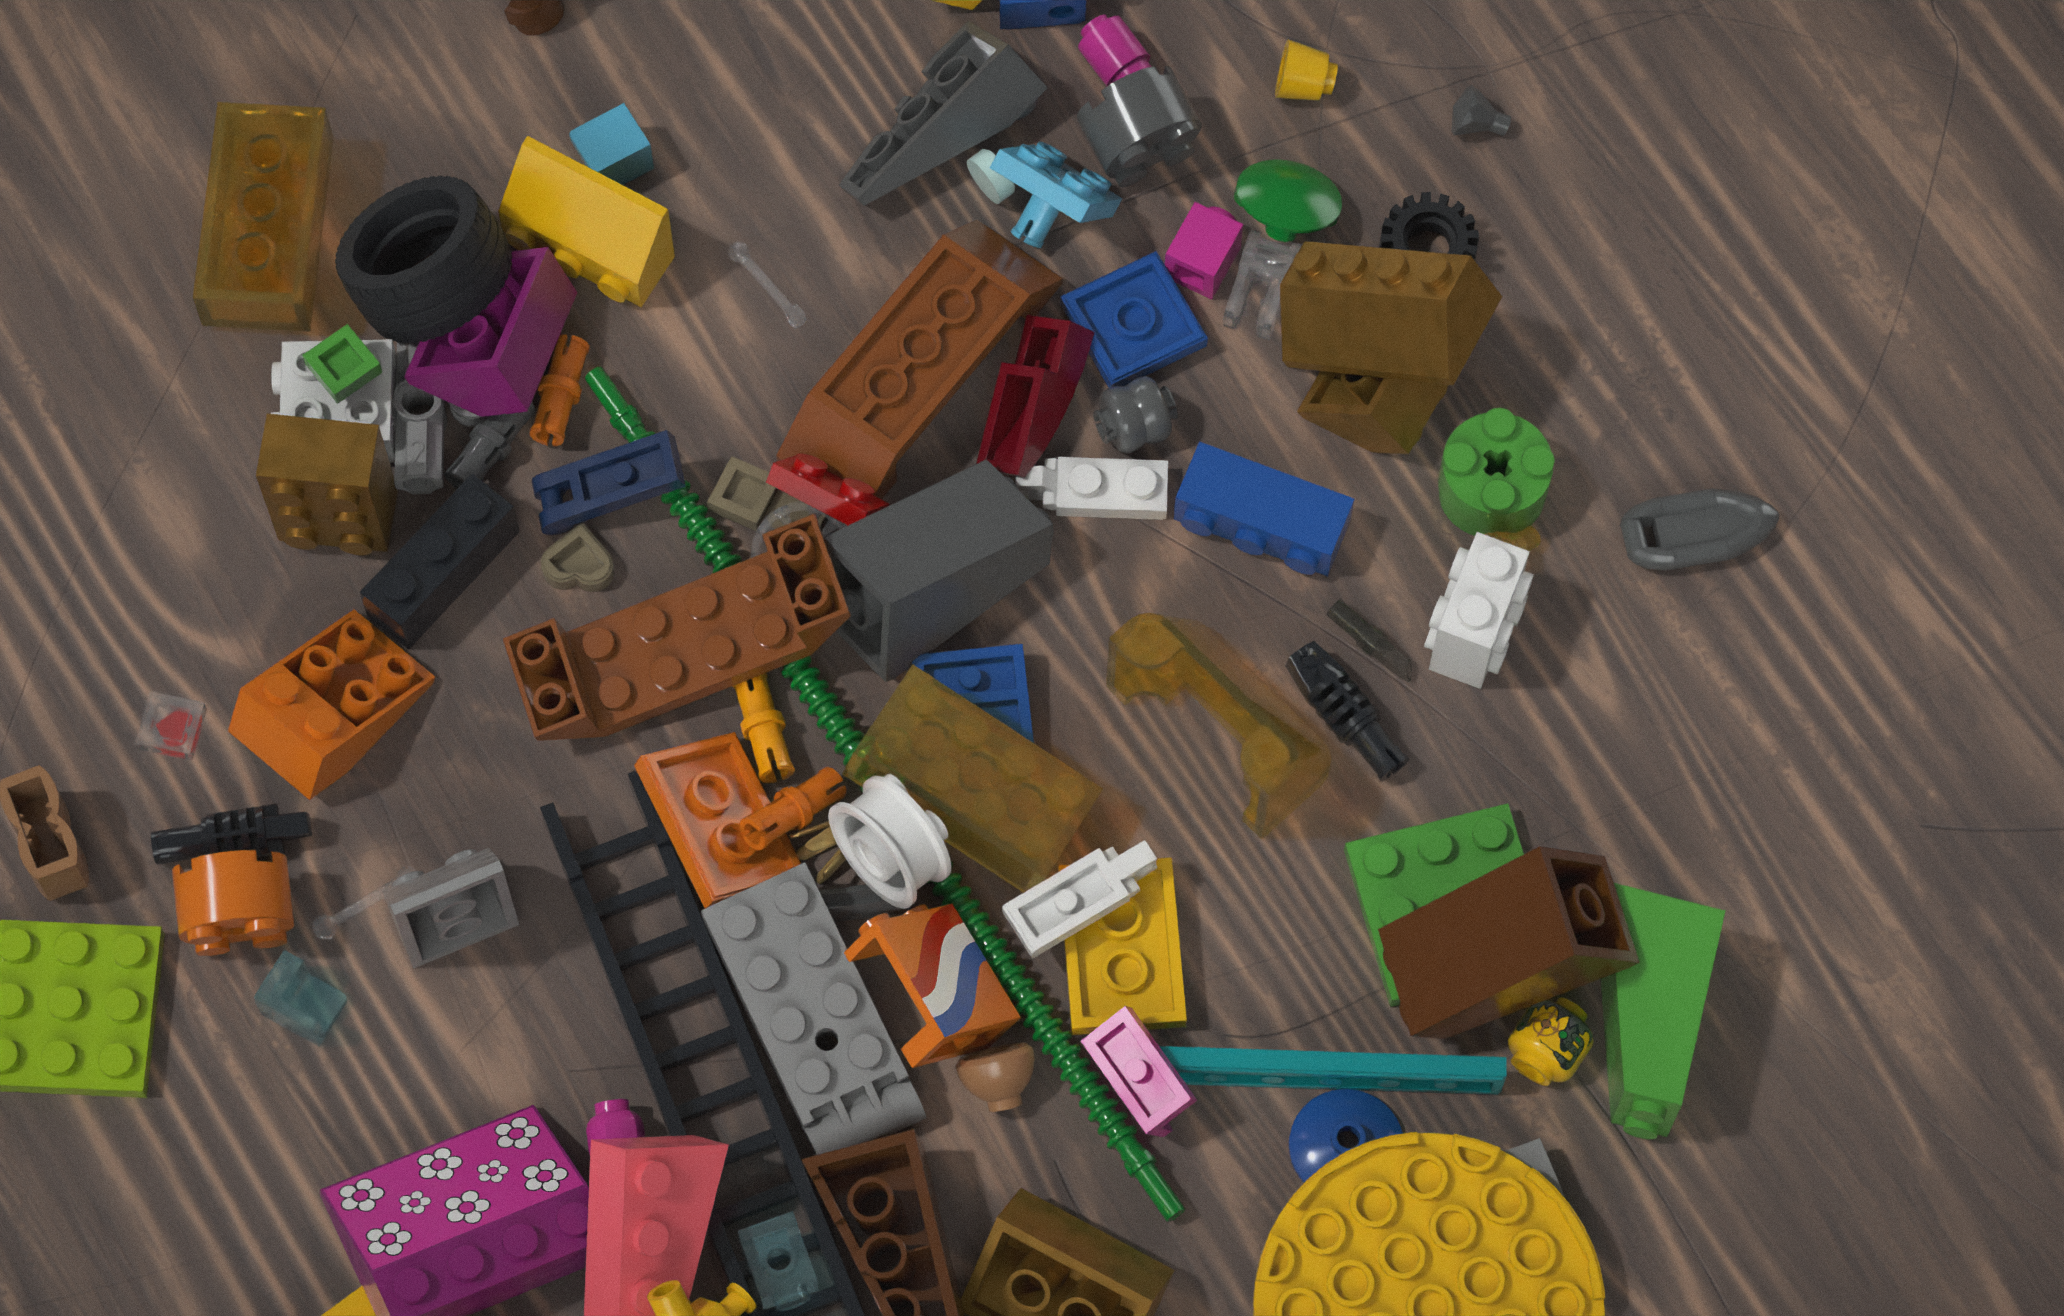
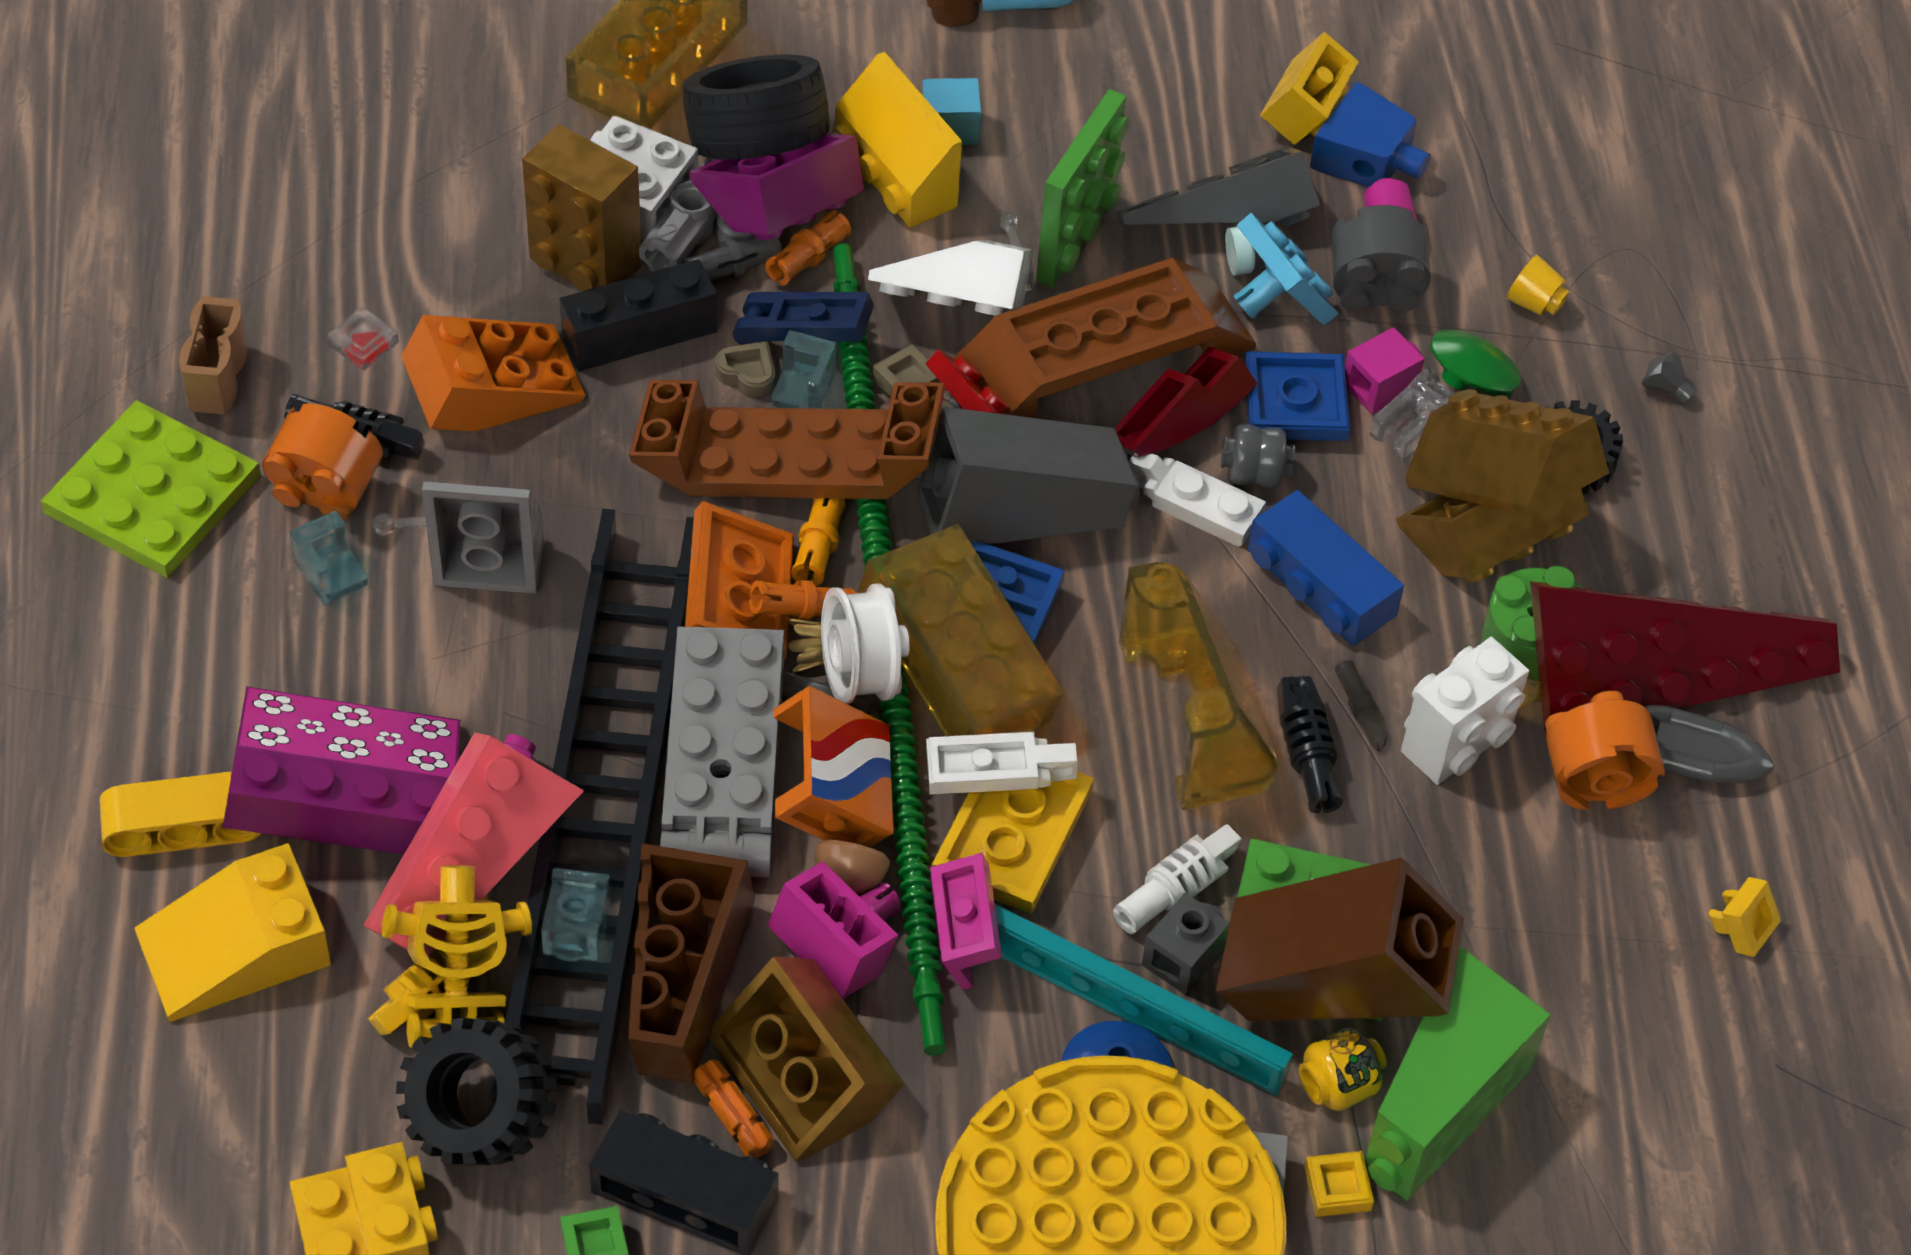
camera: 25 degrees right, 15 degrees down
(342, 363) = (645, 137): bright green plate -> none
(641, 544) = (806, 372): none -> clear light blue panel
(744, 351) = (977, 271): none -> white slope
(814, 197) = (1082, 189): none -> bright green plate
(1024, 1143) = (836, 927): none -> dark pink brick
(1301, 921) = (1183, 871): none -> white hinge
(1346, 985) = (1185, 943): none -> dark grey brick
(1586, 477) = (1668, 648): none -> dark red wing
(1601, 1154) = (1338, 1184): none -> yellow tile
(1627, 588) = (1604, 752): none -> orange brick
(1832, 690) = (1748, 916): none -> yellow tile

